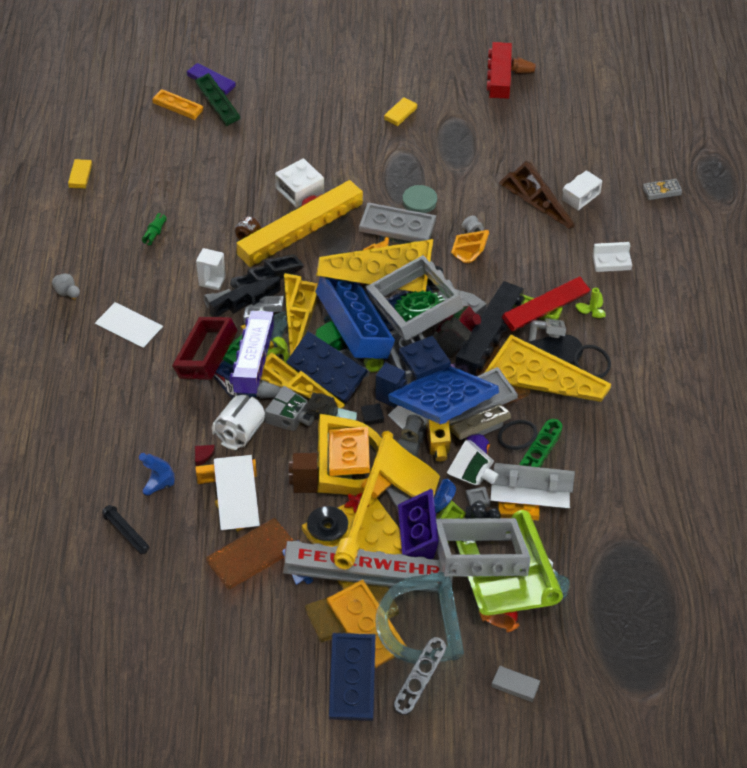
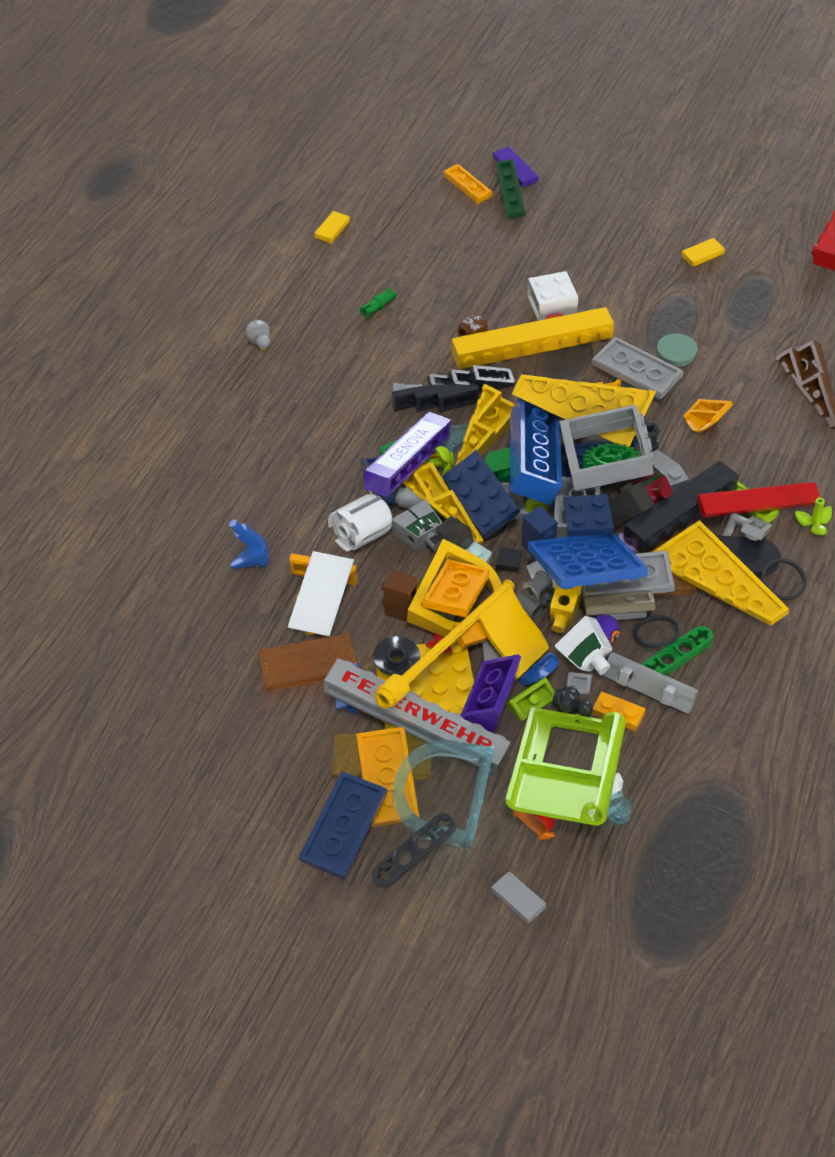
camera: 25 degrees right, 0 degrees up
(110, 513) = (187, 575): black axle -> none
(129, 324) = (304, 391): white sticker -> none
(203, 453) = (311, 543): dark red tile -> none
(205, 369) = (337, 446): dark red window -> none
(211, 269) = (411, 358): white panel -> none
(267, 303) = (455, 412): light grey tile -> none
(471, 224) = (719, 391): light grey wheel -> none
(482, 530) = (551, 716): light grey window -> none
(530, 496) = (636, 701): white sticker -> none

